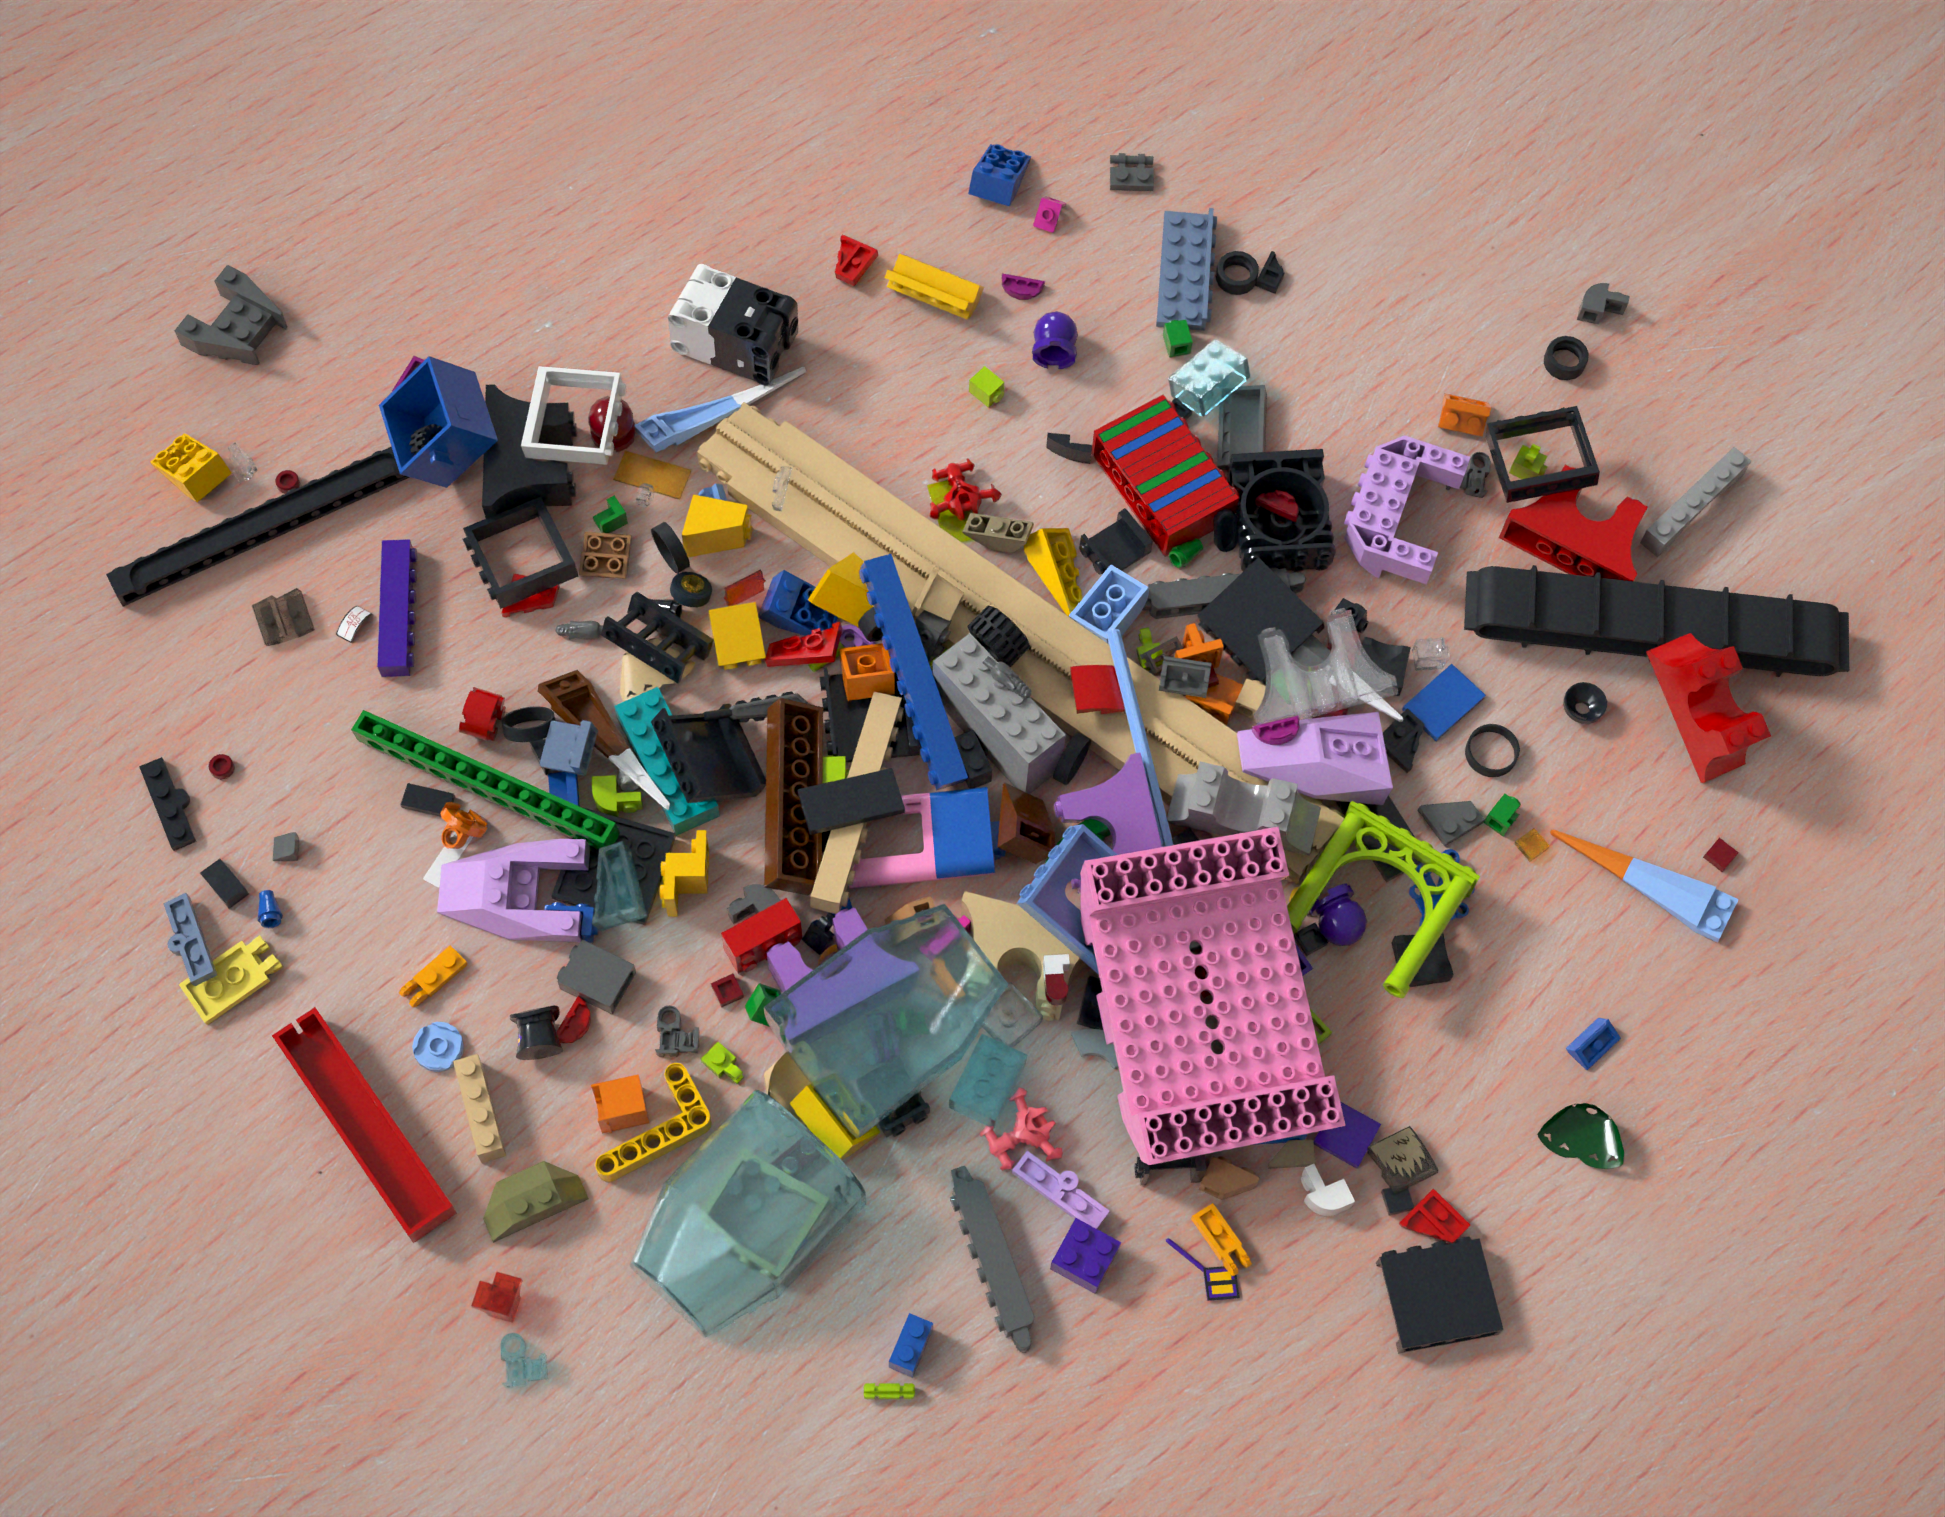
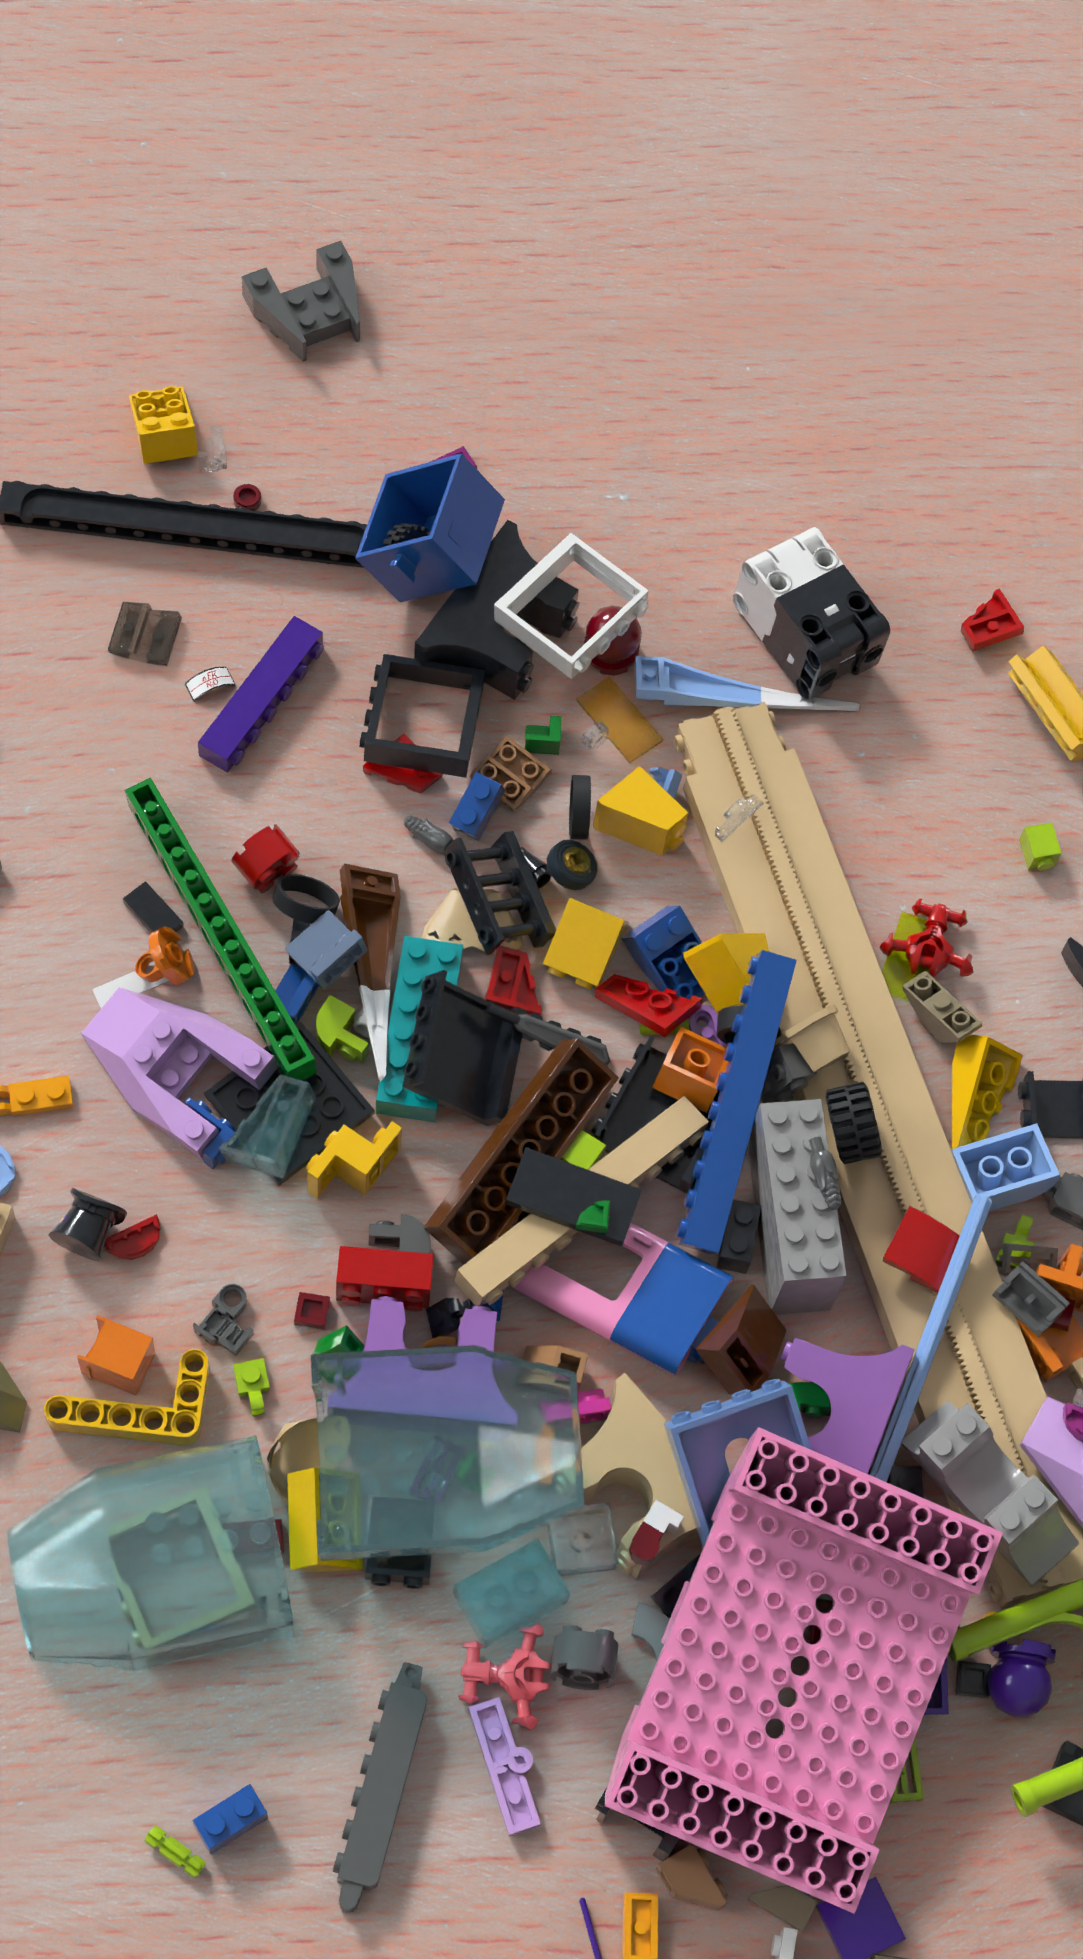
camera: 30 degrees right, 0 degrees up
(596, 976) = (189, 1206): dark grey brick -> none
(600, 590) = (477, 806): none -> blue brick
(705, 691) = (512, 982): none -> red wing
(744, 588) = (627, 899): clear red piece -> none
(876, 804) = (595, 1217): none -> green tile
(1064, 1088) = (584, 1658): none -> dark grey brick
(1072, 758) = (846, 1306): black tyre -> none
(1085, 1255) = (480, 1854): dark purple brick -> none

